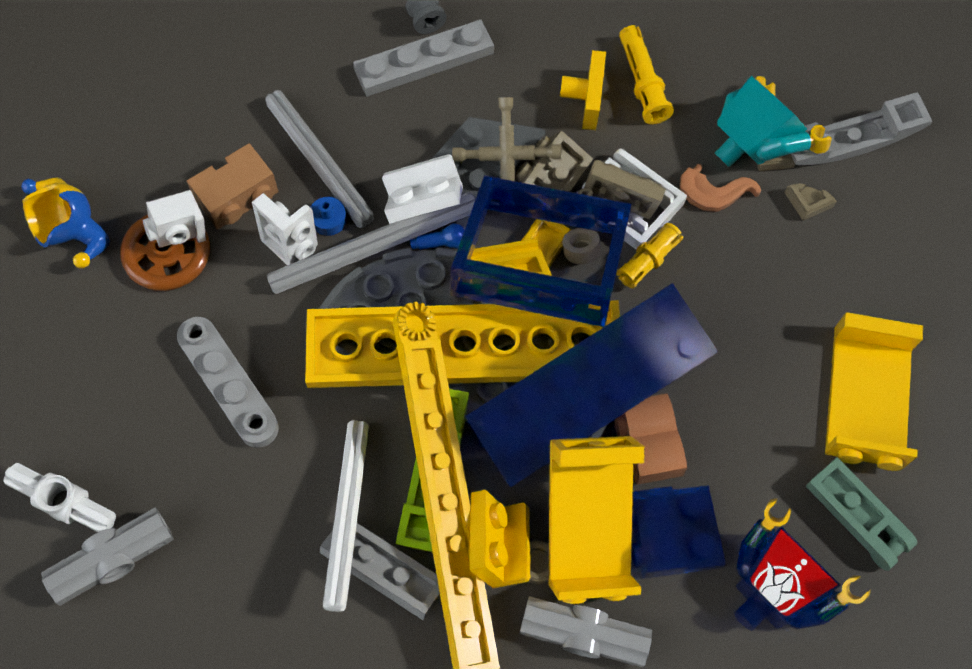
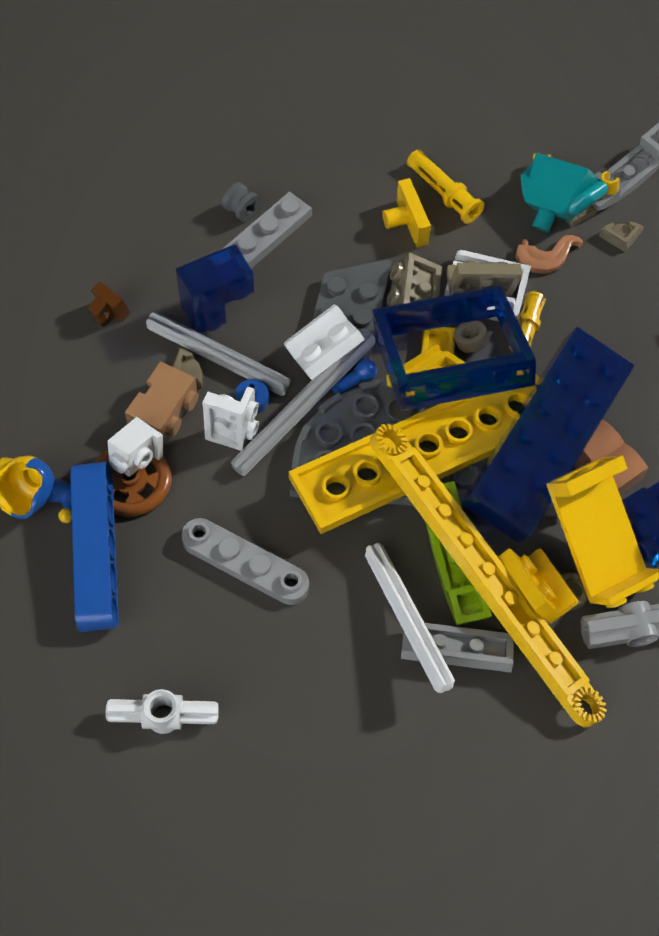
camera: 25 degrees left, 5 degrees down
(86, 304) = (94, 547): none -> blue beam
(106, 556) = (229, 739): light grey piece -> none
(236, 65) = (107, 305): none -> reddish brown tile
(281, 161) = (188, 364): none -> dark tan tile
(340, 84) = (211, 284): none -> clear blue brick
(507, 152) = (376, 285): dark tan piece -> none

